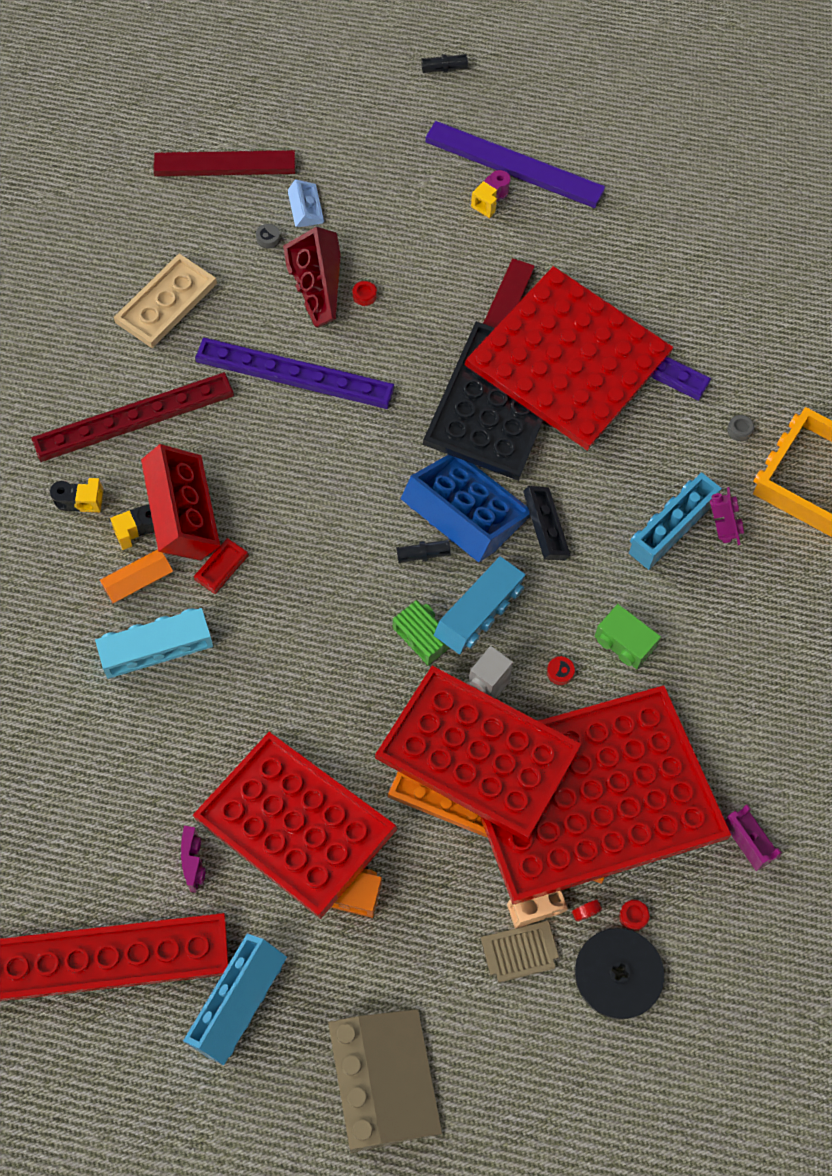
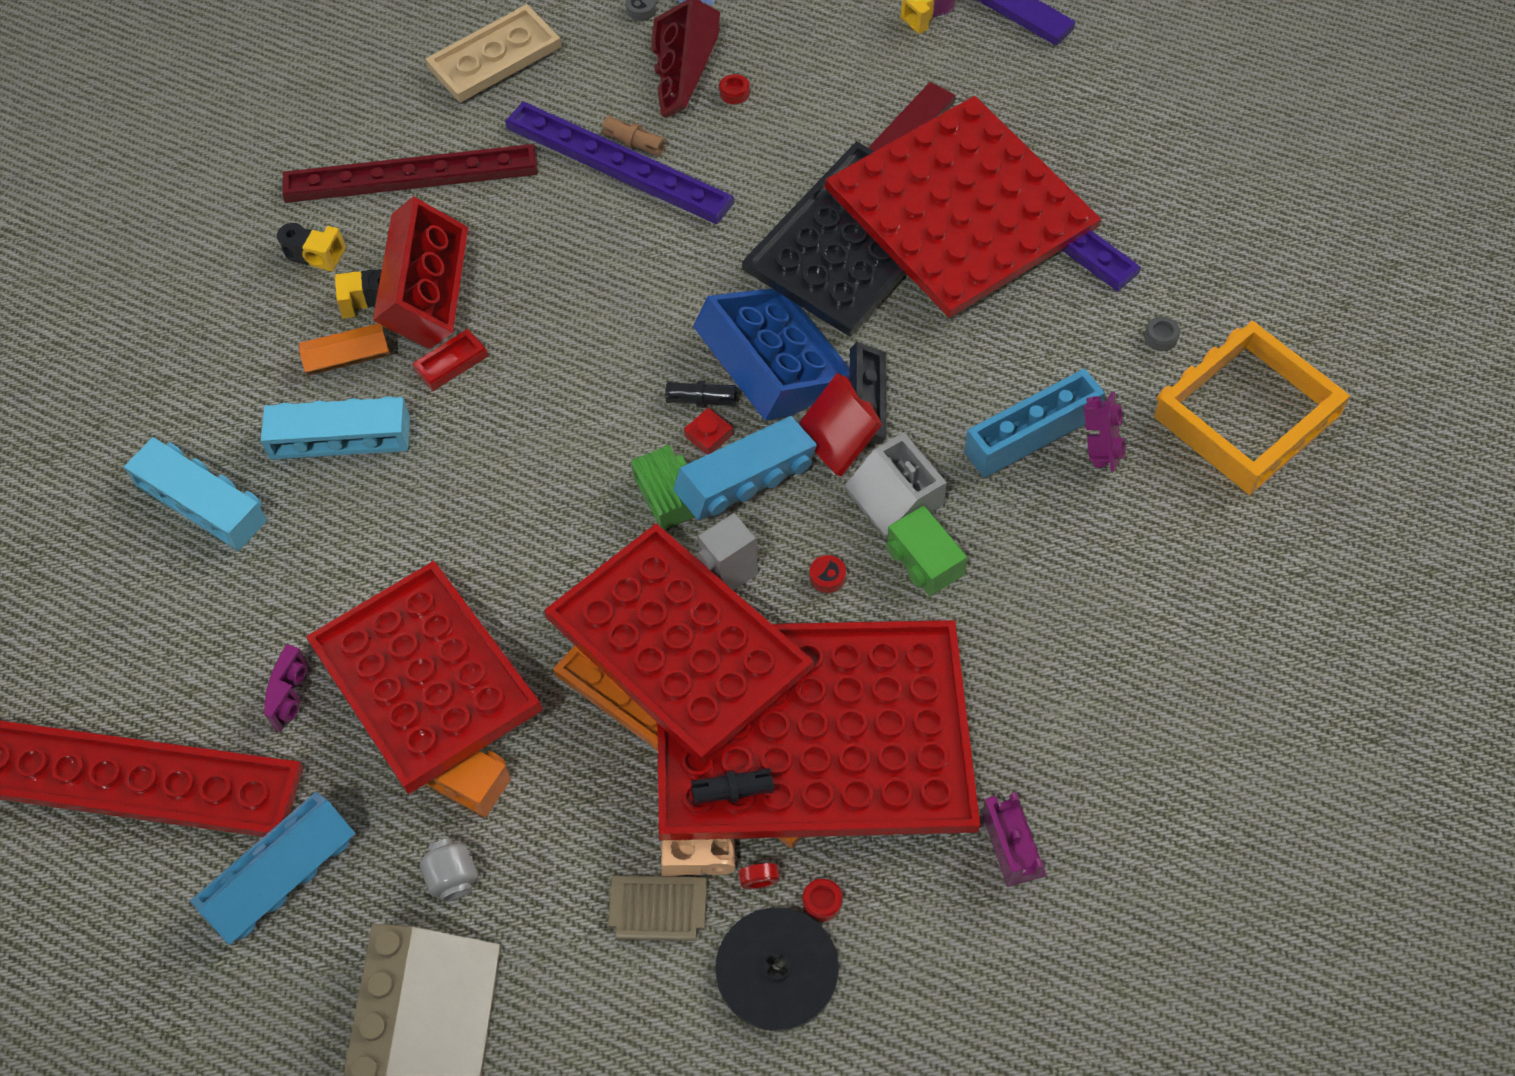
camera: 20 degrees right, 5 degrees down
(63, 721) = (196, 492): none -> medium azure brick
(300, 349) = (633, 136): none -> medium nougat pin
(364, 965) = (448, 870): none -> light grey head
(437, 579) = (708, 431): none -> red plate
(538, 554) = (840, 424): none -> red slope
(554, 853) = (732, 786): none -> black pin
(591, 592) = (895, 483): none -> light grey slope

